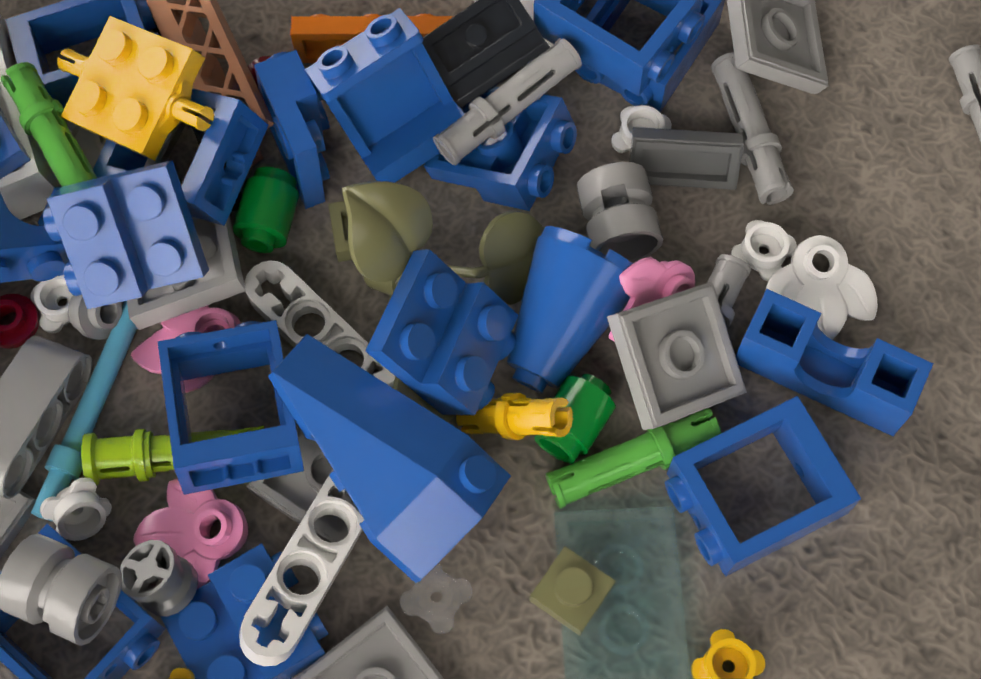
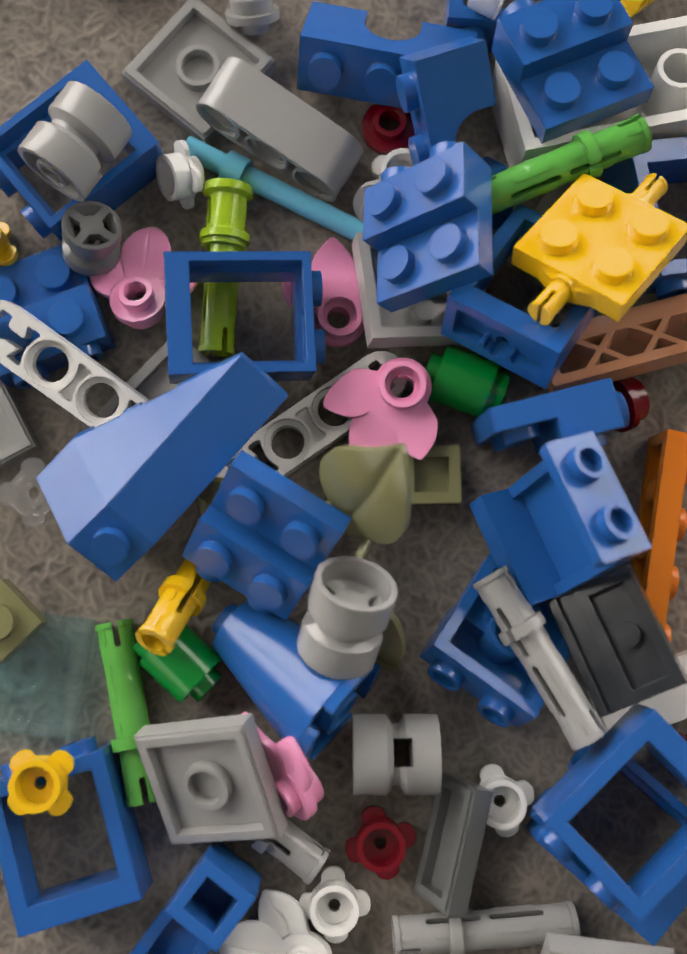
camera: 95 degrees right, 15 degrees up
(310, 274) = (378, 414): none -> bright pink plate
(504, 246) = (346, 617): none -> light grey wheel
(705, 207) = (384, 859): none -> dark red plate
(724, 483) = (27, 796): none -> yellow plate

